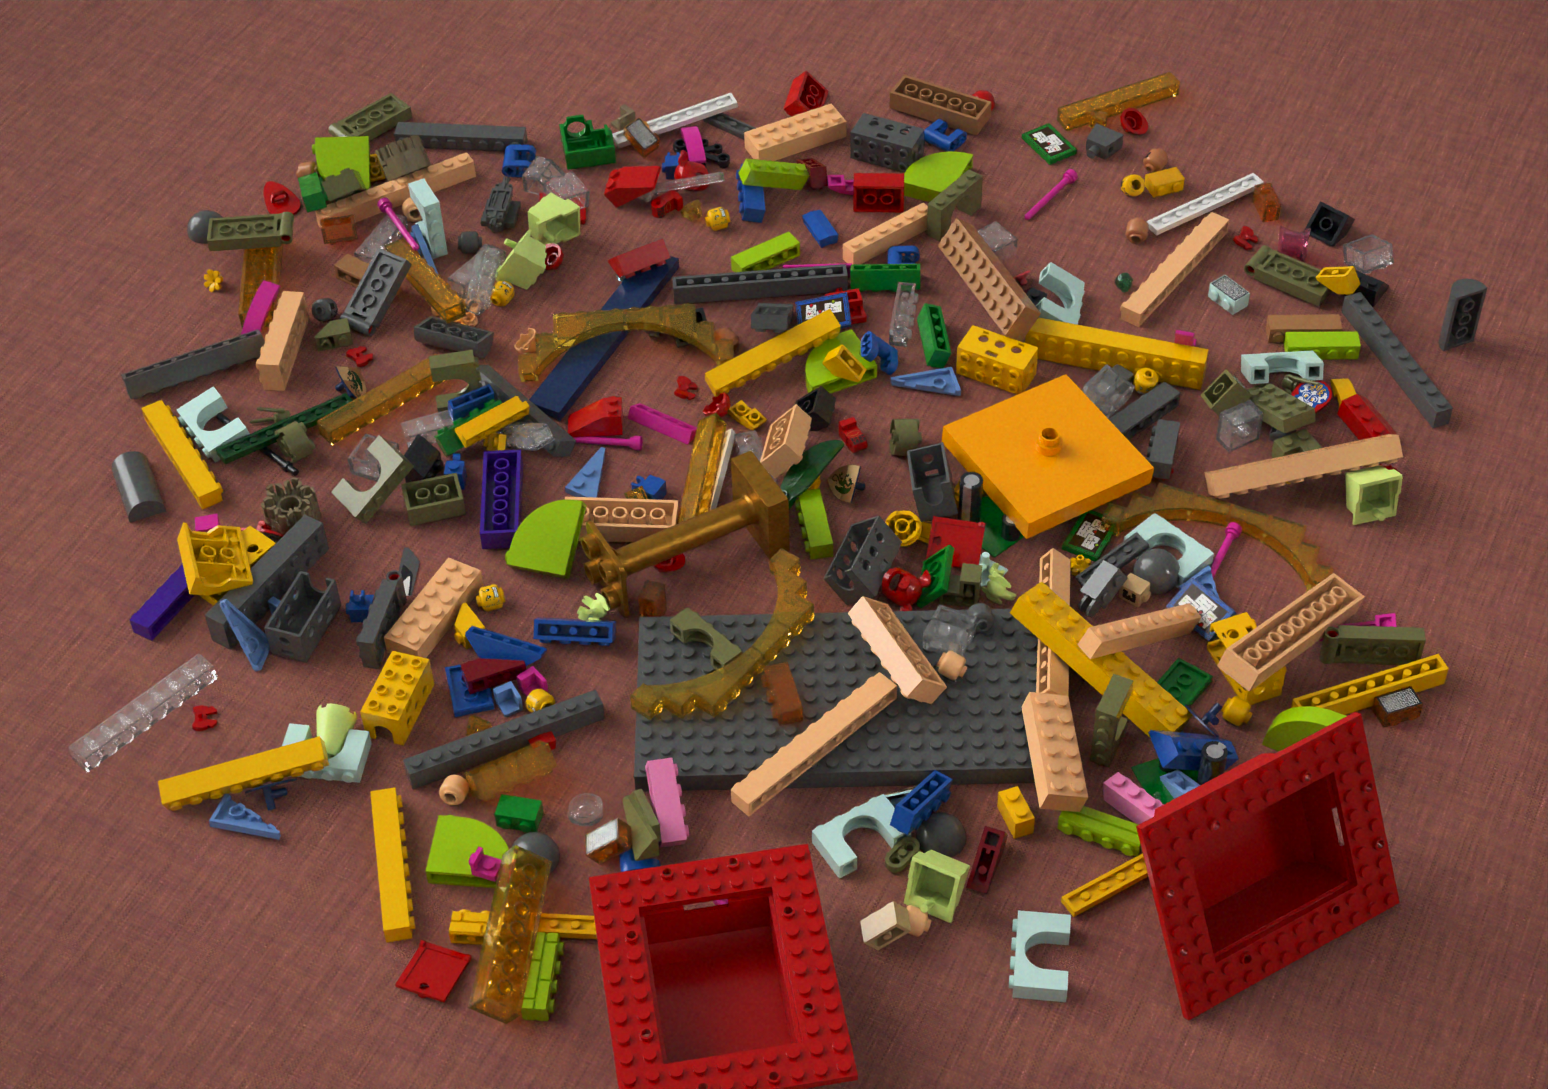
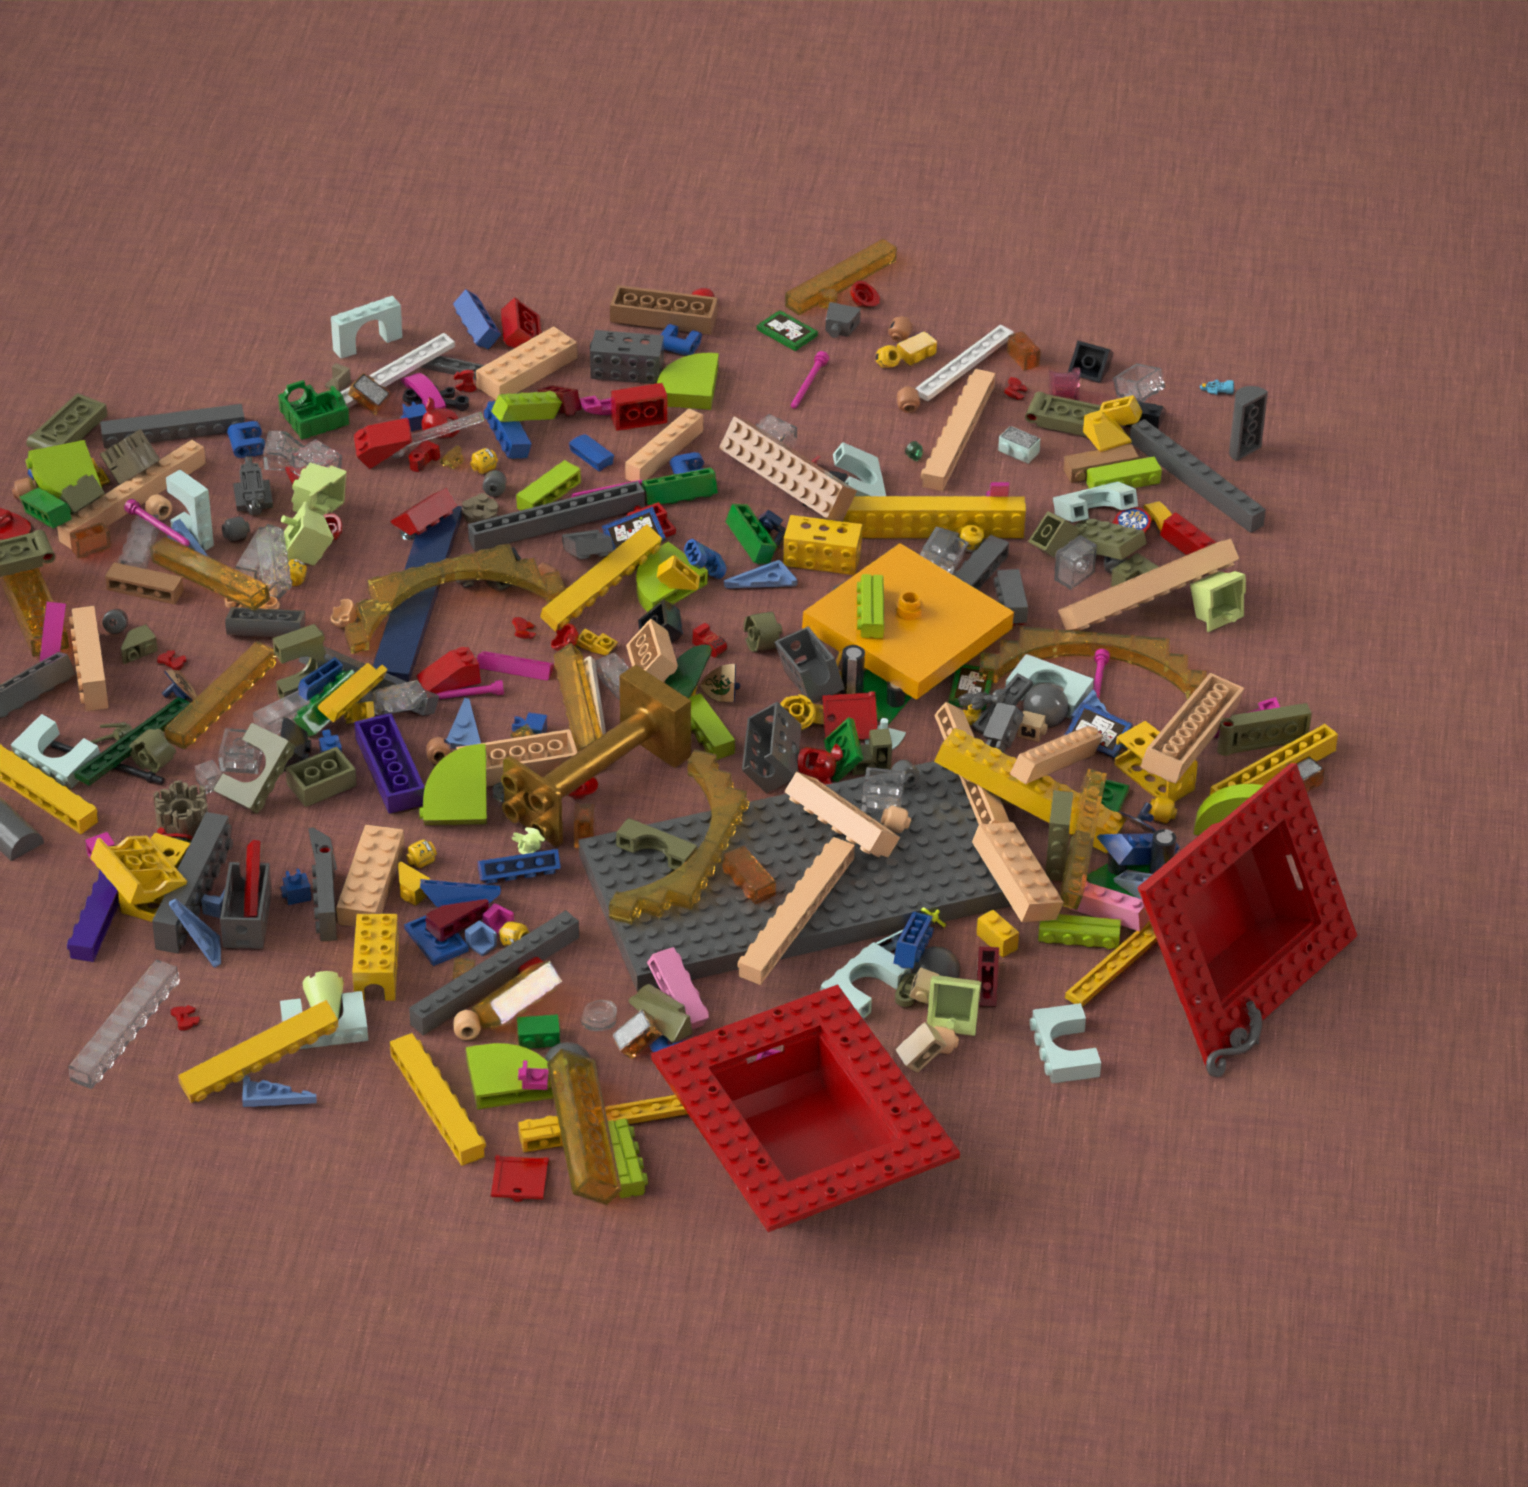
camera: 20 degrees left, 5 degrees down
(271, 794) = (290, 1066): dark blue shield -> none
(317, 587) = (252, 879): none -> red tile
(333, 475) = (208, 775): none -> clear brick
(376, 292) = (166, 592): dark grey hinge -> none
(552, 492) = (437, 749): none -> nougat head
(646, 69) = (347, 324): none -> light aqua arch
(700, 257) = (473, 508): none -> dark tan plate
(718, 242) = (494, 483): none -> dark grey head
(735, 143) = (468, 384): none -> red piece
(767, 85) = (476, 319): none -> brick
(902, 314) = (712, 519): clear brick -> none
(914, 847) = (921, 985): none -> tan brick
(955, 329) = (772, 522): none -> dark blue plate
(957, 779) = (935, 916): none -> neon yellow piece
(965, 192) = (726, 397): olive arch -> none
(997, 586) = (904, 746): yellowish green piece -> none
(1009, 434) = (871, 606): none -> lime brick
(1088, 552) = (980, 699): none -> dark grey piece
(1131, 731) = (1082, 838): none -> clear yellow brick
(1222, 996) = (1235, 1039): none -> dark grey plant
(1291, 382) = (1109, 514): olive plant -> none
(1315, 297) = (1104, 431): none -> yellow slope
(1448, 271) = (1216, 386): none -> medium azure piece

